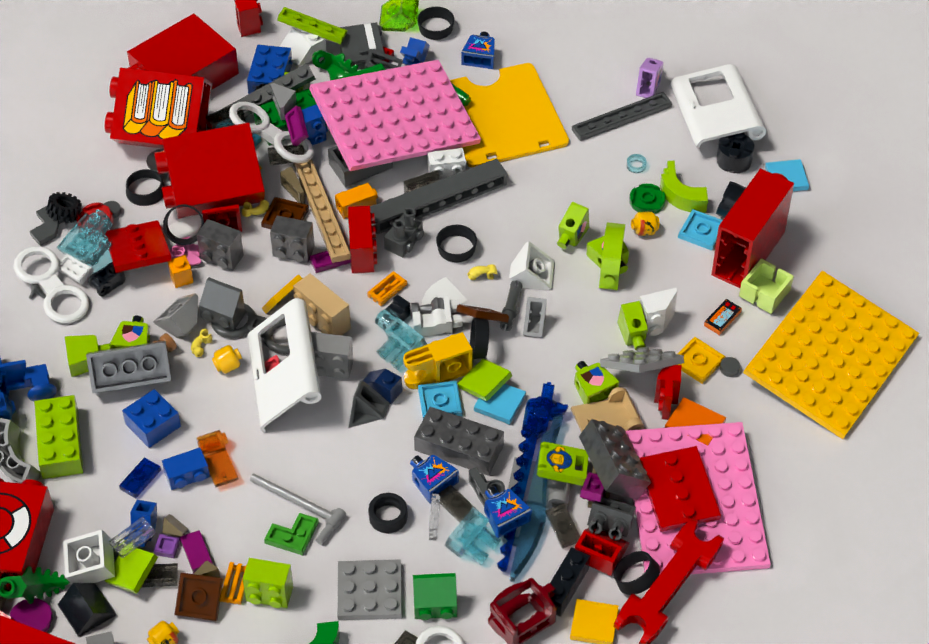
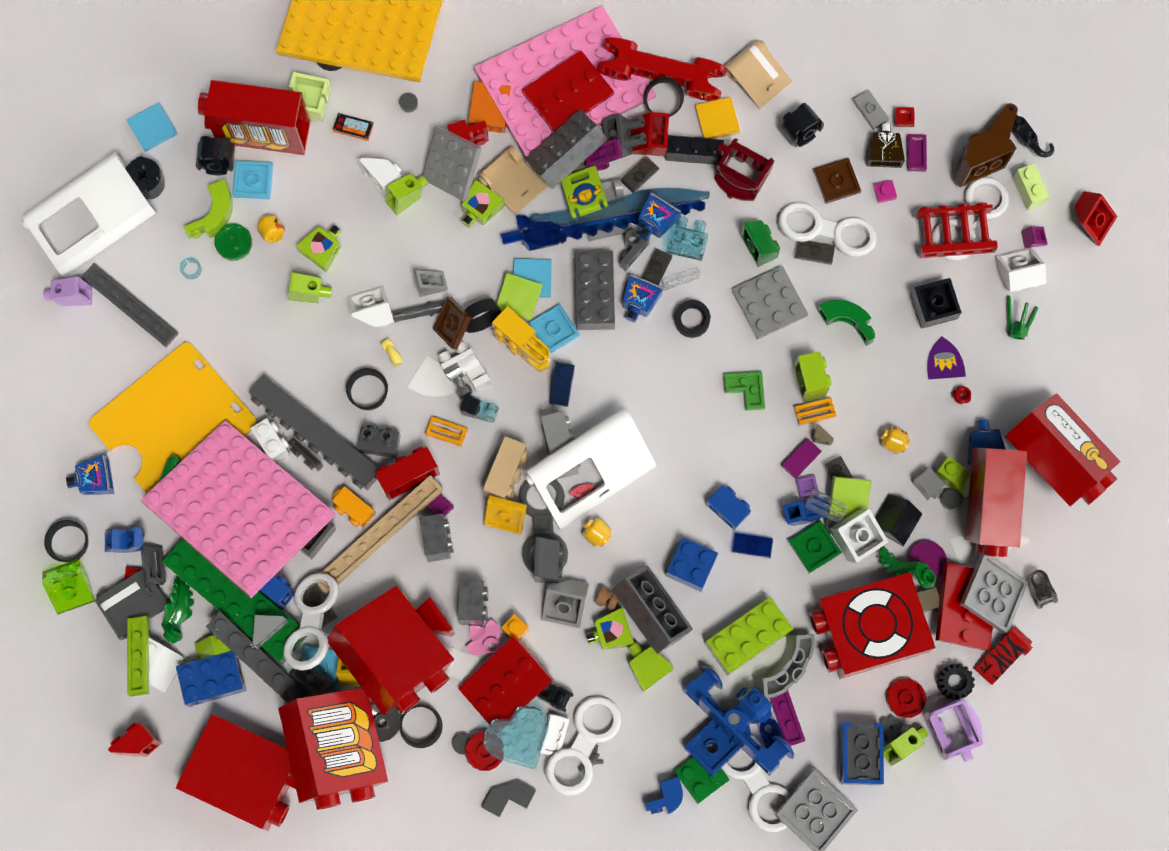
camera: 115 degrees left, 25 degrees up
(63, 207) = (494, 794): black tyre -> none
(109, 520) = (814, 547): none -> green tile
(173, 526) = (790, 485): dark tan slope -> none
(179, 241) = (475, 642): black tyre -> none
(196, 347) = (591, 571): light yellow arm -> none
(198, 596) = (846, 429): reddish brown tile -> none
(217, 458) = (704, 487): clear orange door -> none
(284, 208) = (397, 569): reddish brown tile -> none
(292, 185) = (357, 579): dark tan slope -> none
(296, 125) = (295, 597): magenta tile -> none
(332, 518) = (716, 362): light grey bar -> none
(367, 406) = (591, 385): dark grey slope -> none
(402, 337) = (506, 381): clear light blue brick -> none
(611, 256) = (329, 234): lime arch -> none
(700, 360) = (411, 131): yellow tile -> none

